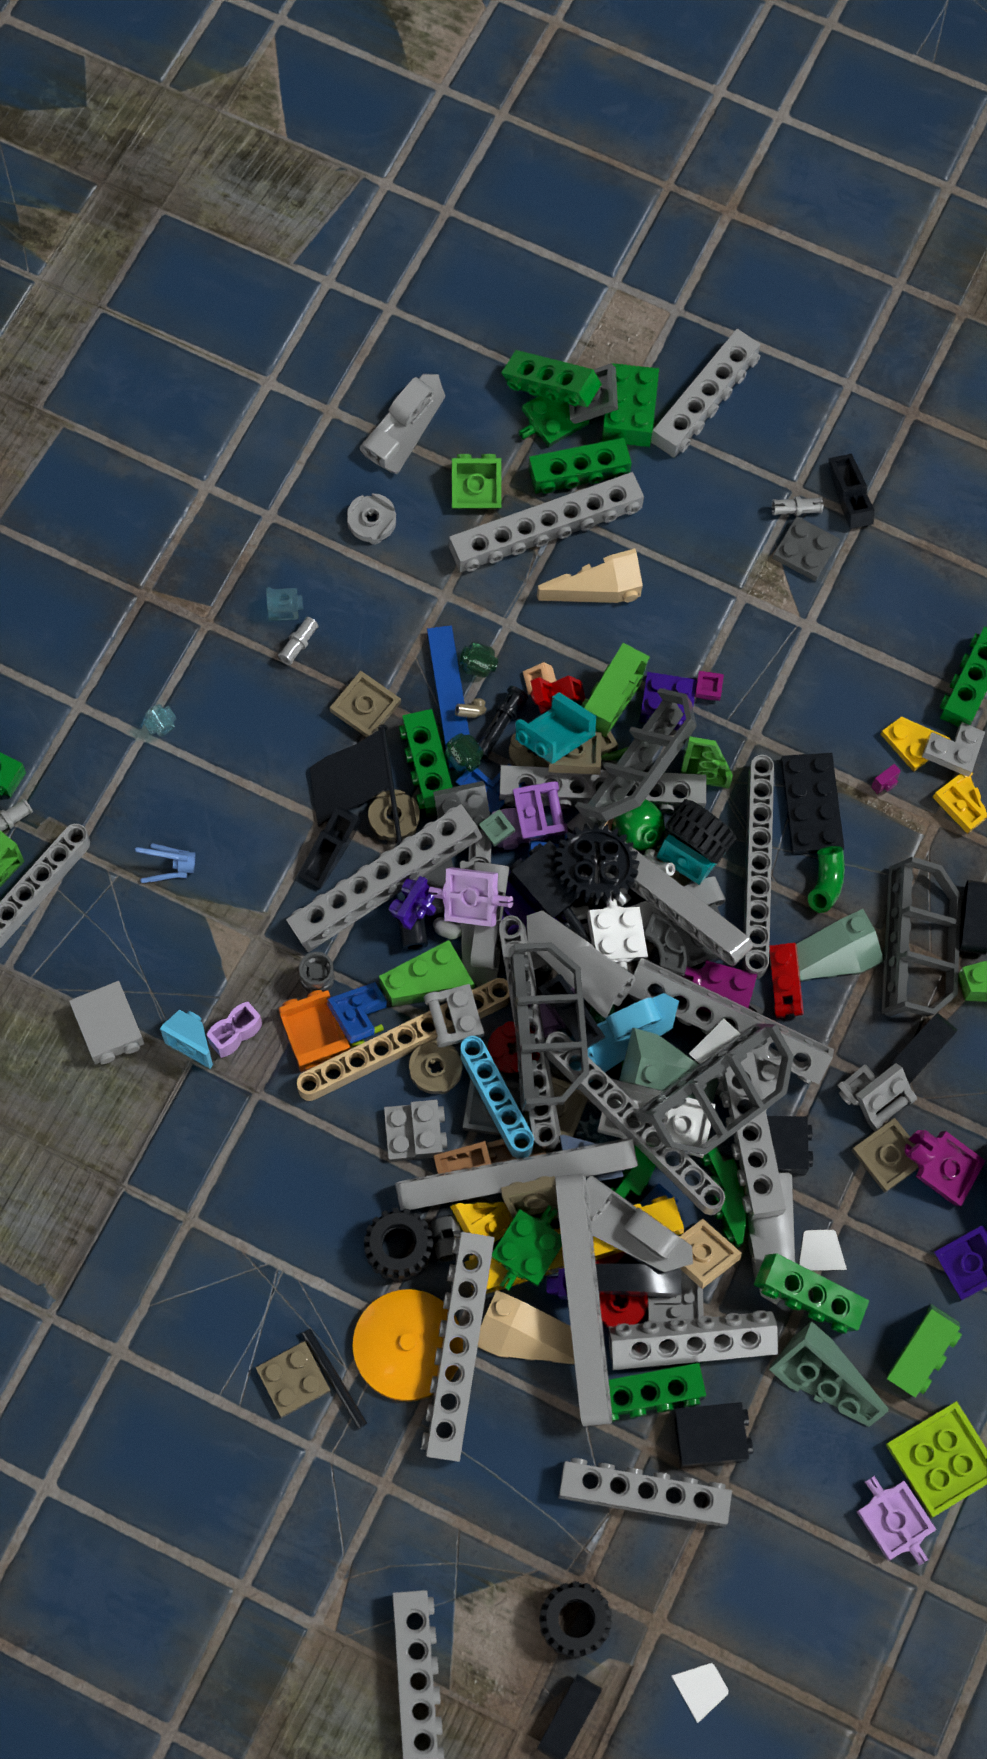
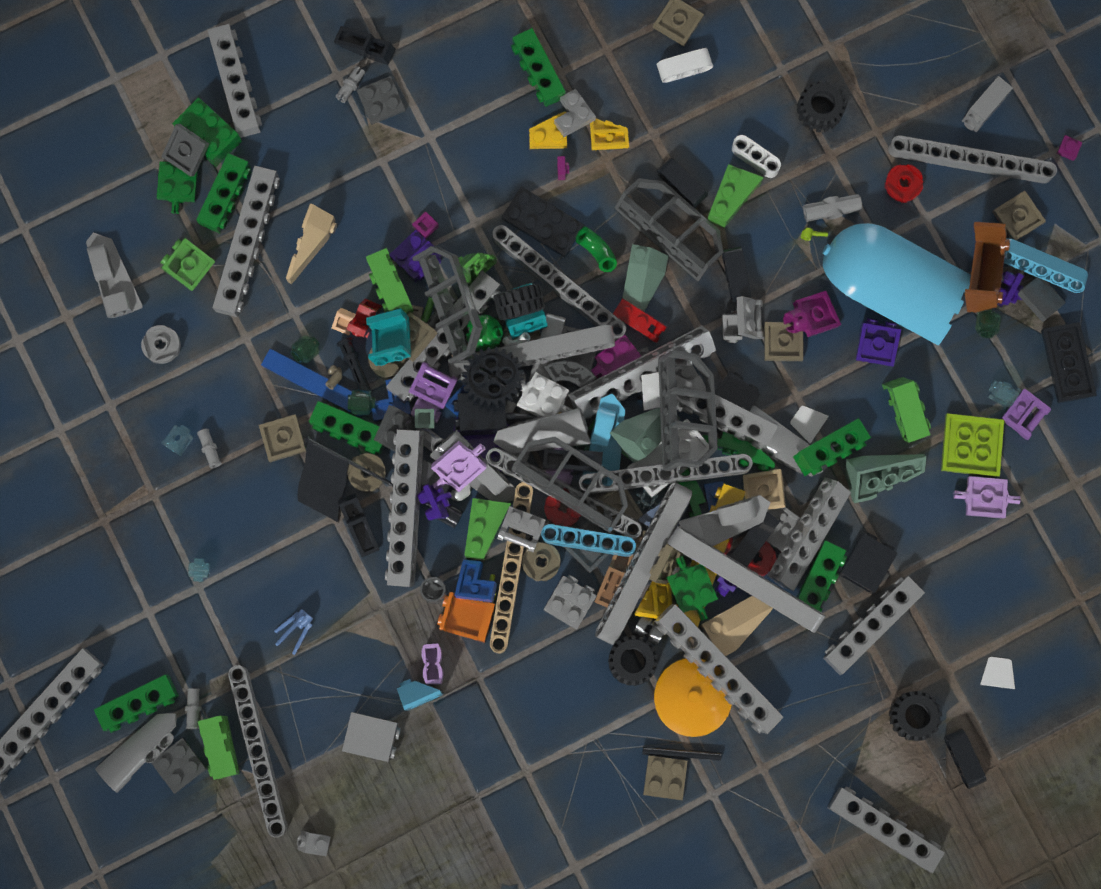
camera: 50 degrees left, 10 degrees up
(551, 378) = (159, 159): green brick -> none

